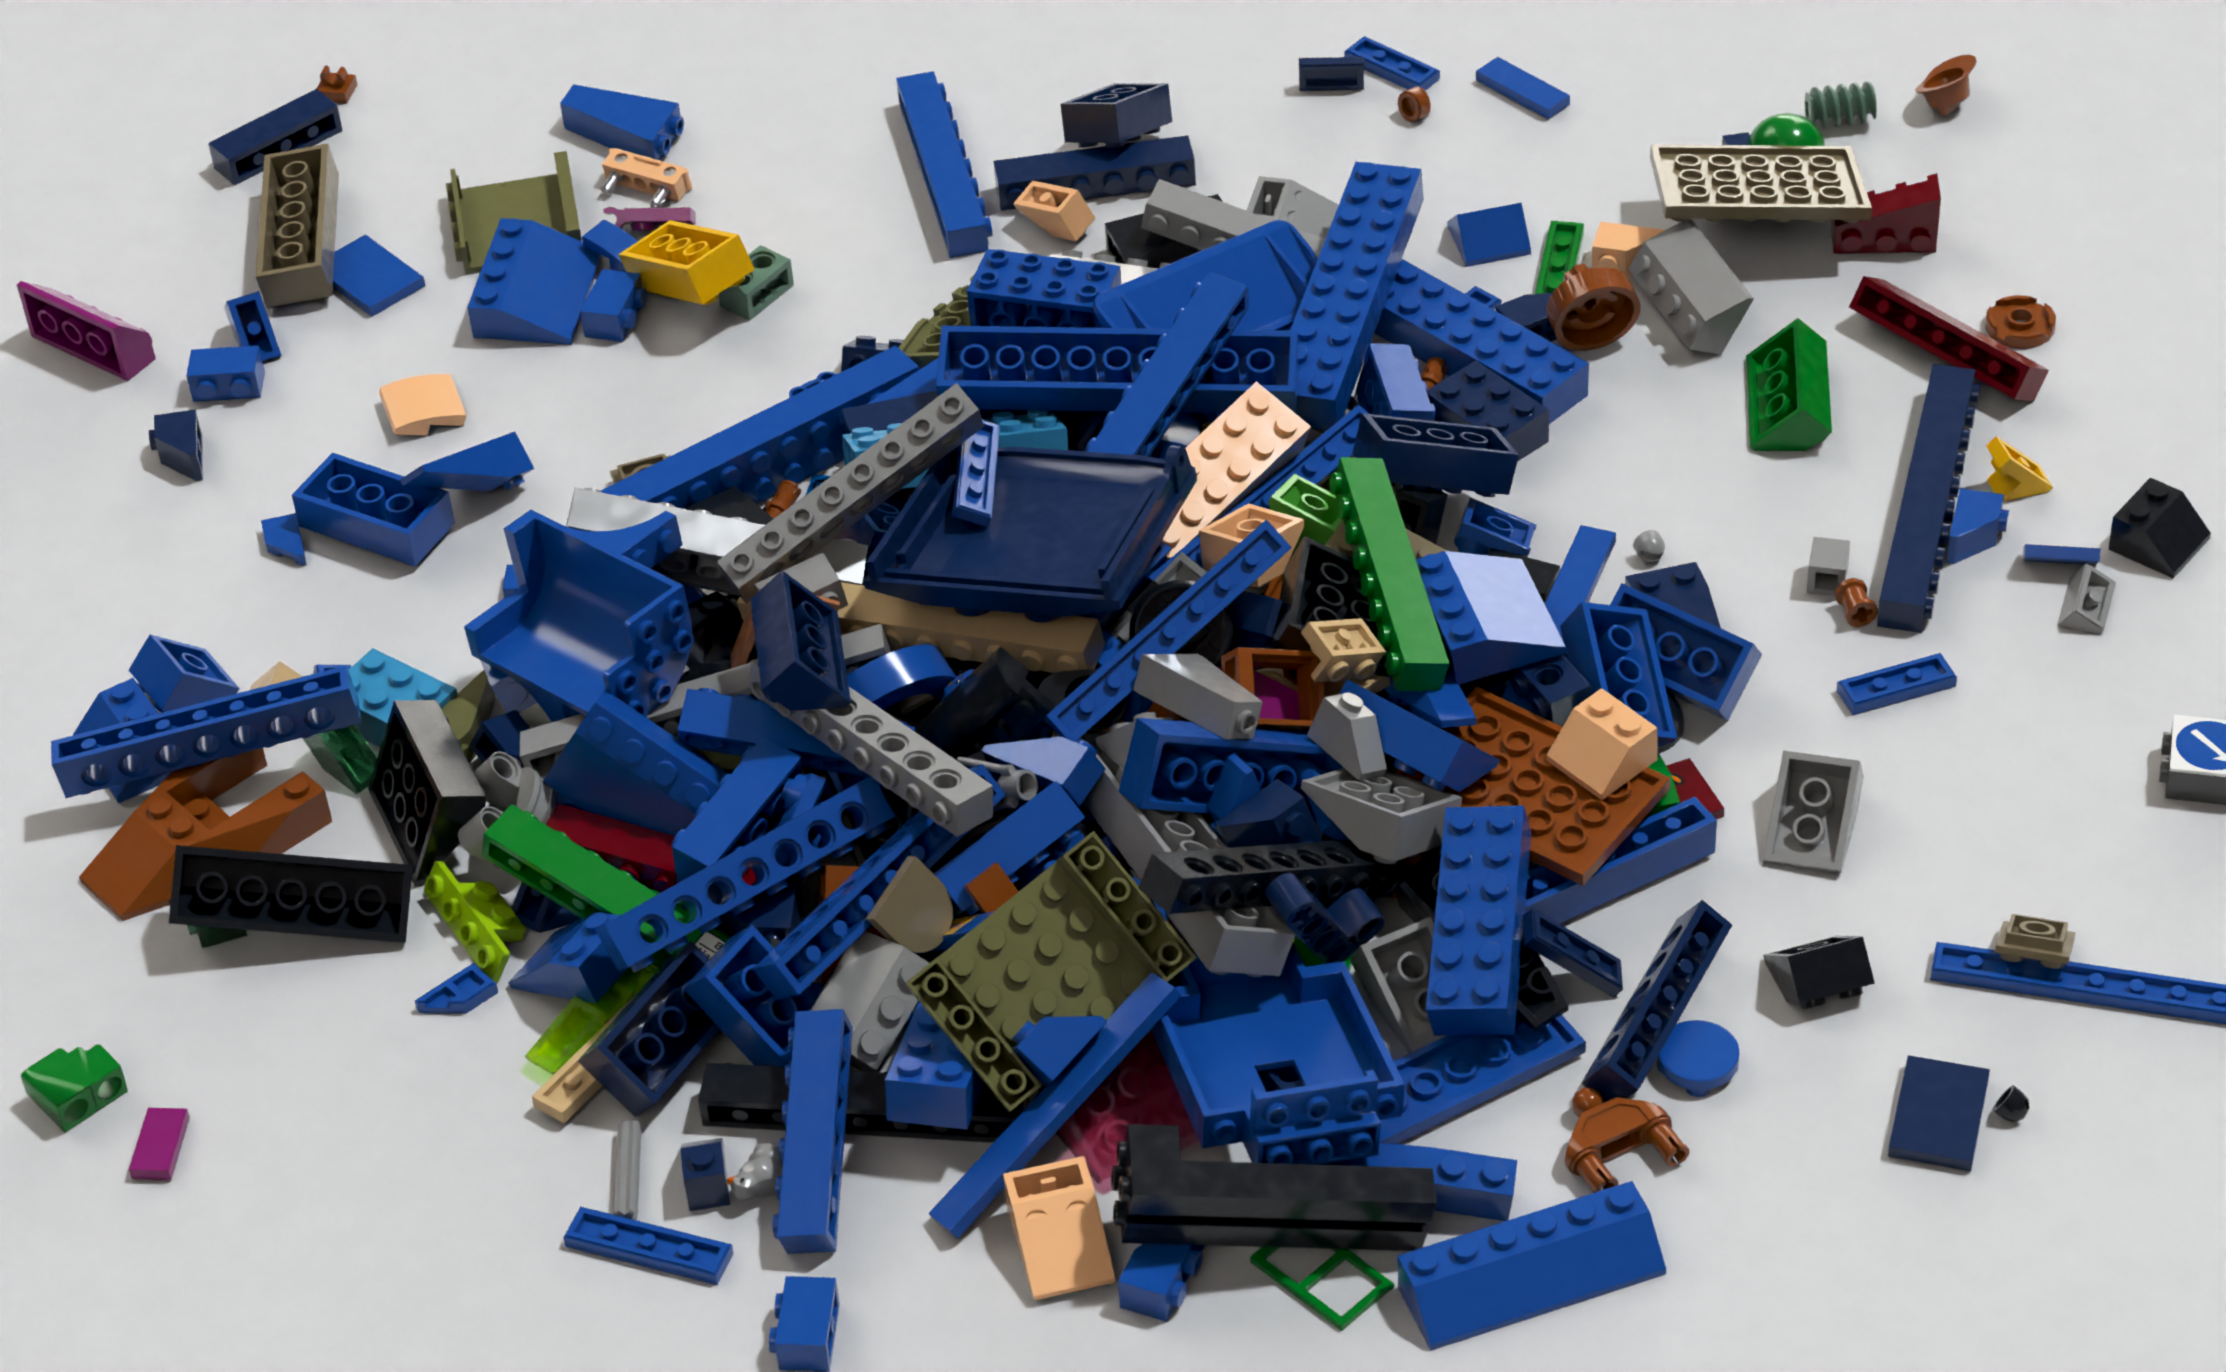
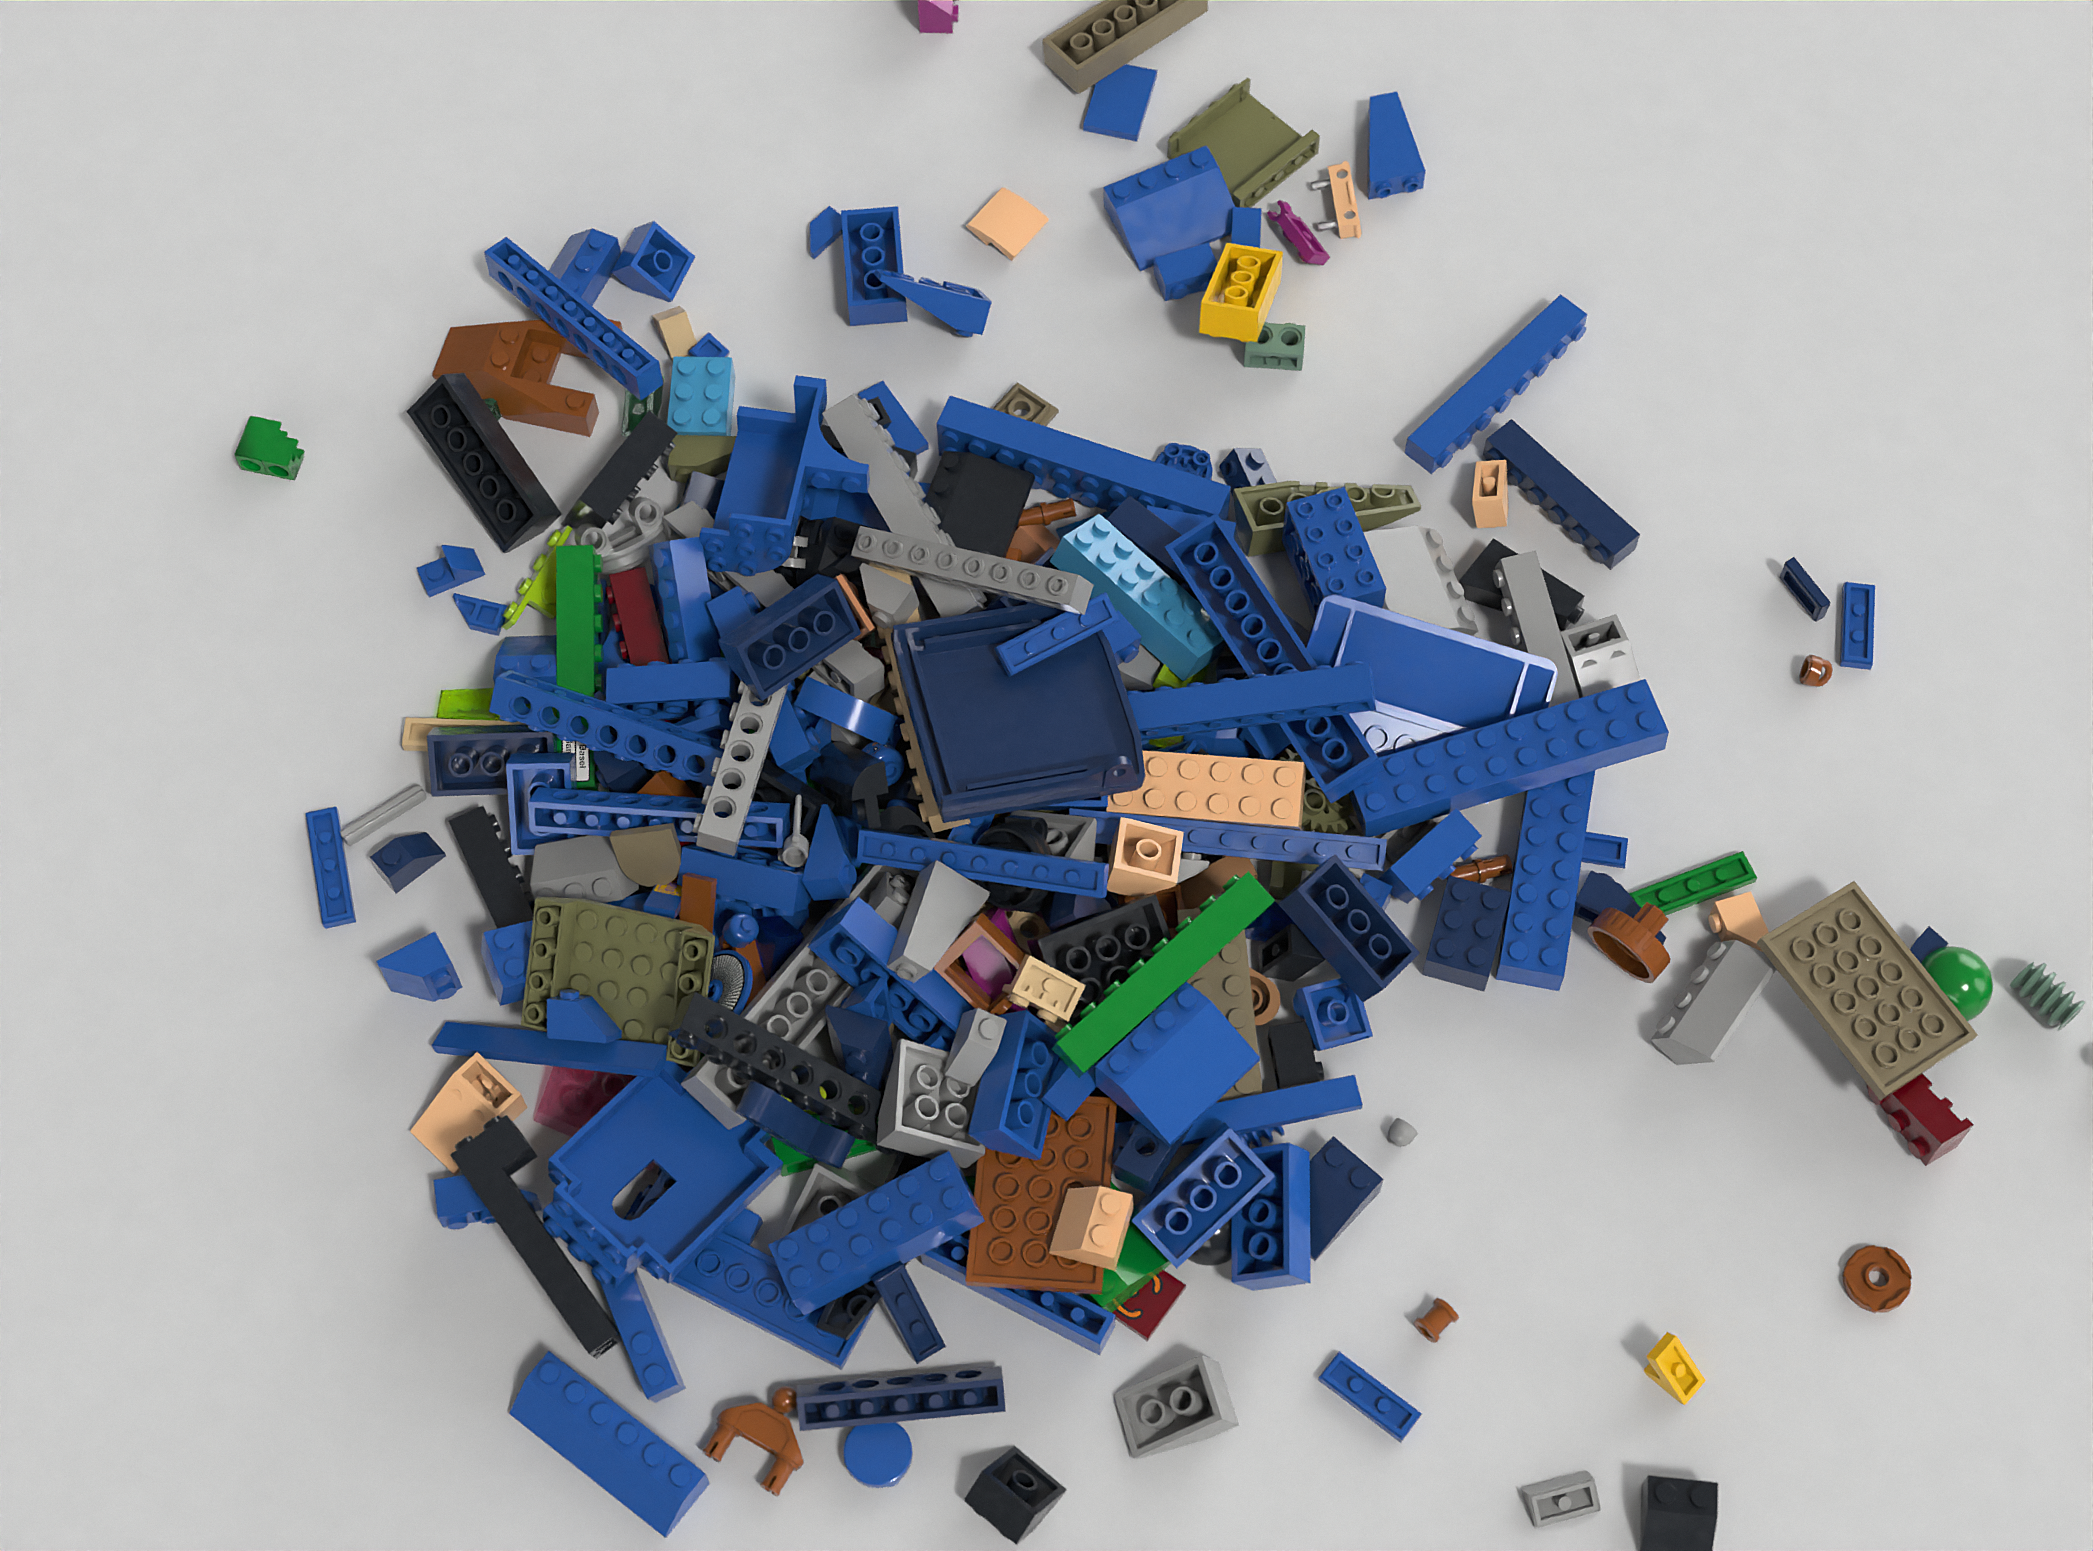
camera: 55 degrees right, 20 degrees up
(159, 1143) = (257, 529): magenta tile -> none
(179, 442) = (870, 107): dark blue slope -> none
(225, 373) = (954, 86): blue brick -> none
(252, 325) = (1009, 70): blue slope -> none
(381, 997) = (453, 570): none -> blue slope
(758, 1174) = (418, 899): light grey animal -> none
(805, 1324) = (308, 1005): blue brick -> none
(814, 1132) = (461, 903): blue brick -> none
(861, 1191) = (421, 970): none -> blue slope
(1116, 114) = (1621, 470): dark blue brick -> none
(1301, 1290) = (515, 1298): green window -> none
(1309, 502) = (1215, 865): bright green slope -> none
(1490, 234) = (1695, 814): blue slope -> none
(1522, 87) = (1900, 738): blue tile -> none
(1789, 390) = (1654, 1142): green slope -> none
(1827, 565) = (1463, 1278): light grey brick -> none
(1927, 499) = (1597, 1313): dark blue brick -> none
(1948, 338) = (1798, 1235): dark red brick -> none
(1975, 524) = (1587, 1366): blue slope -> none
(2061, 554) = (1596, 1452): blue tile -> none

